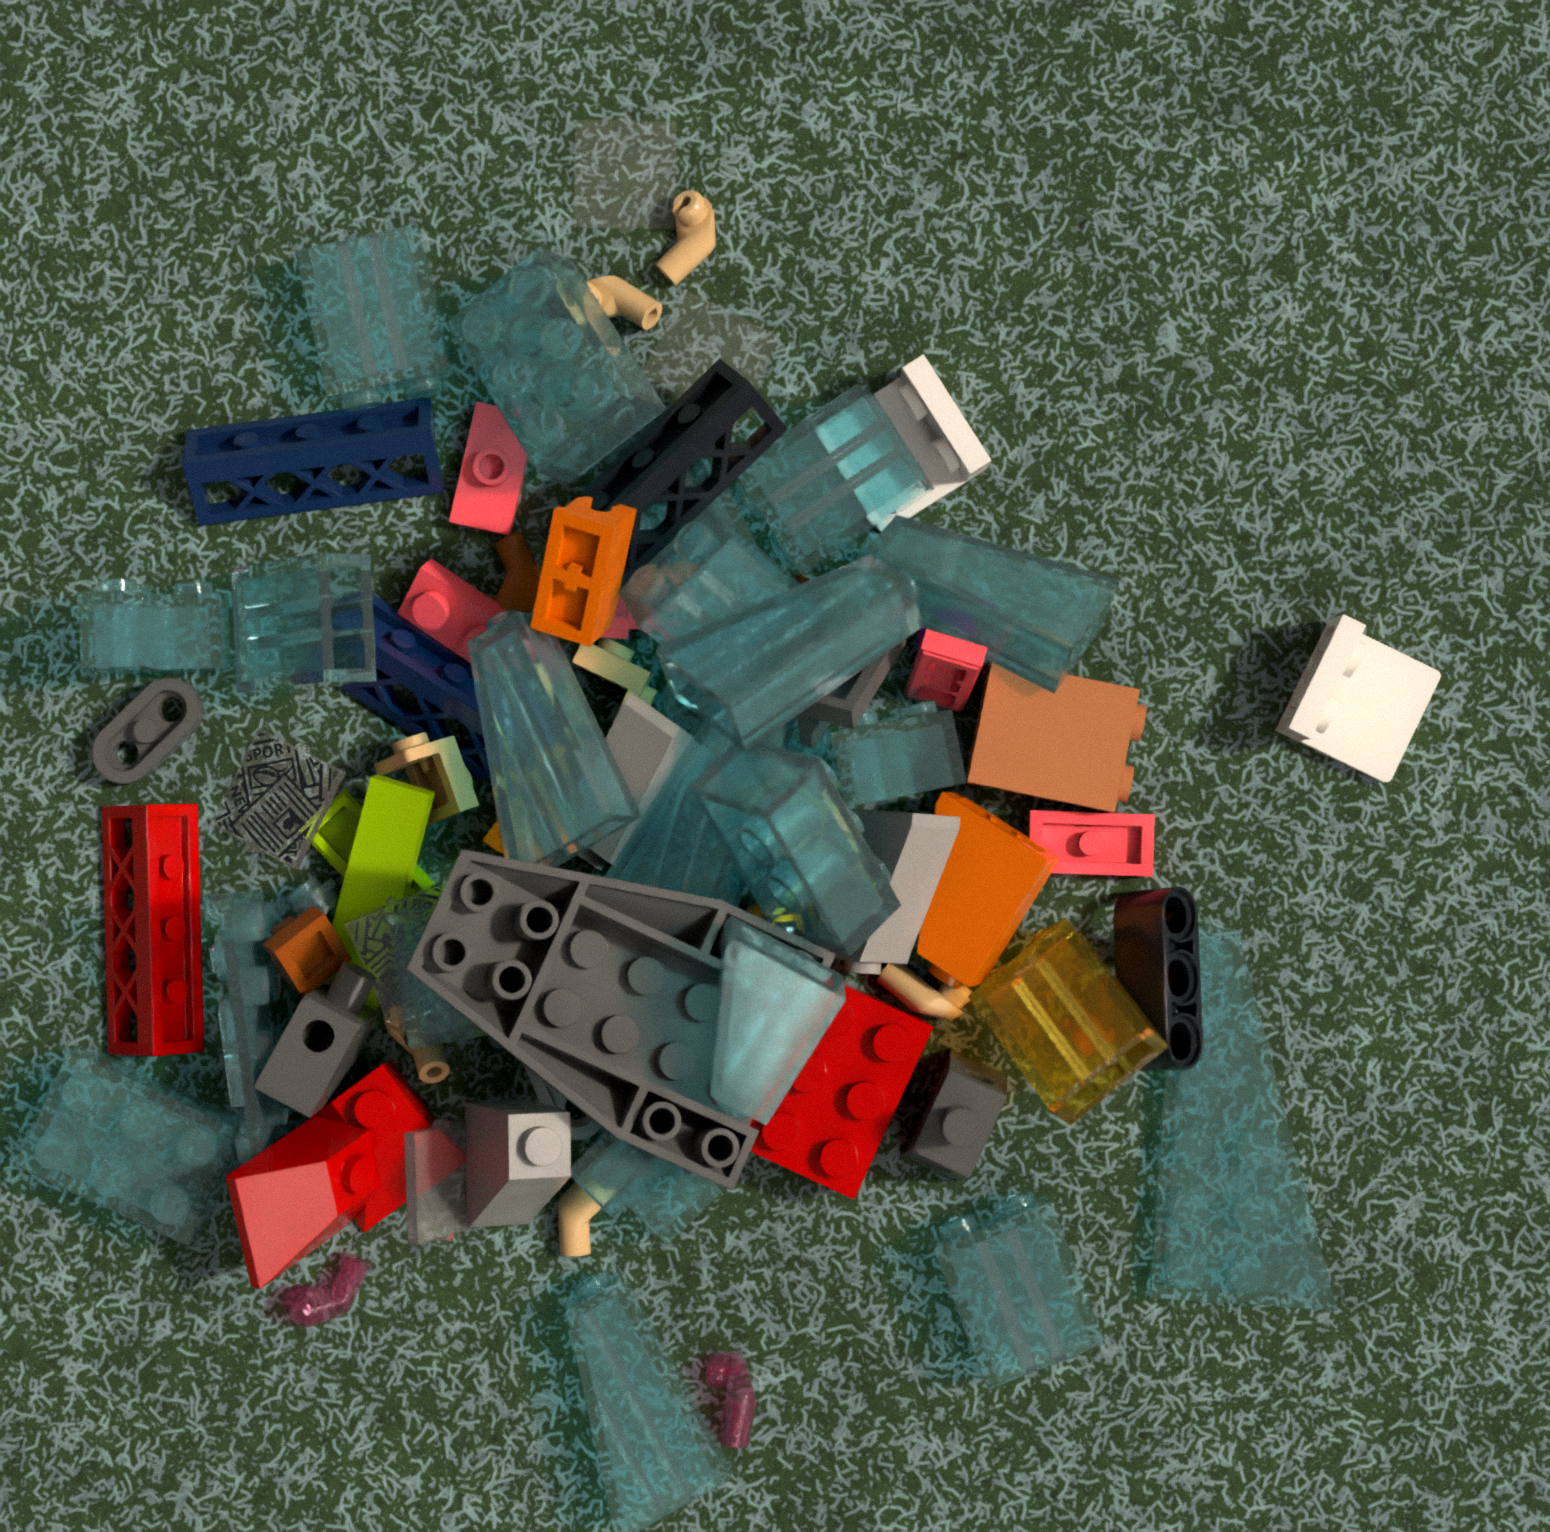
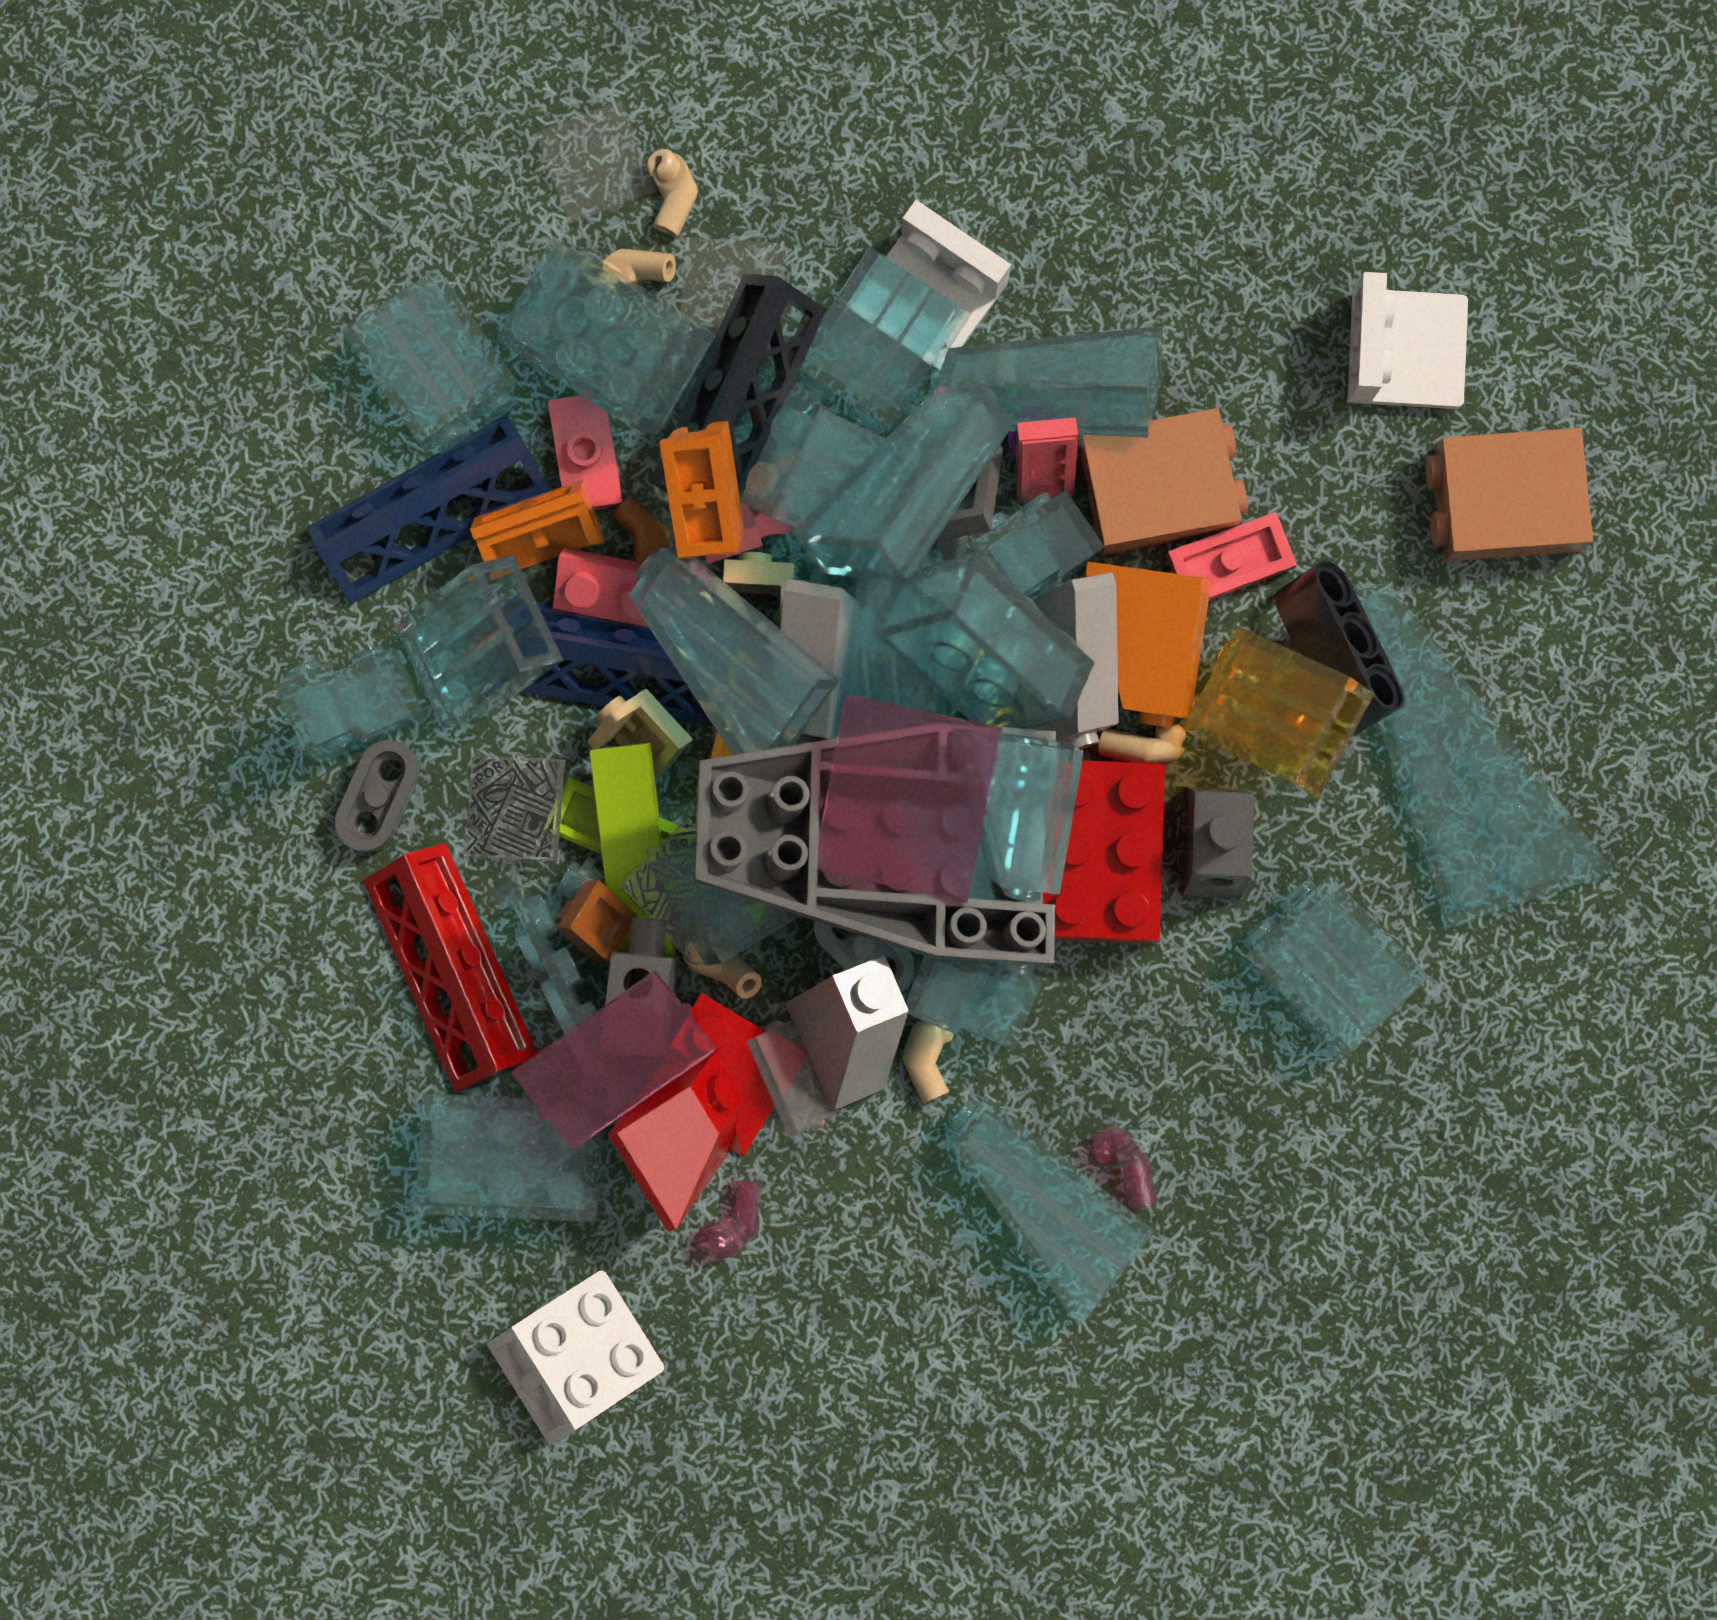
camera: 25 degrees left, 5 degrees down
(122, 1362) = (576, 1357): none -> white bracket
(262, 1103) = (614, 1060): none -> clear pink piece
(411, 527) = (539, 526): none -> orange hinge
(652, 972) = (907, 798): none -> clear pink piece
(1396, 893) = (1510, 494): none -> nougat brick

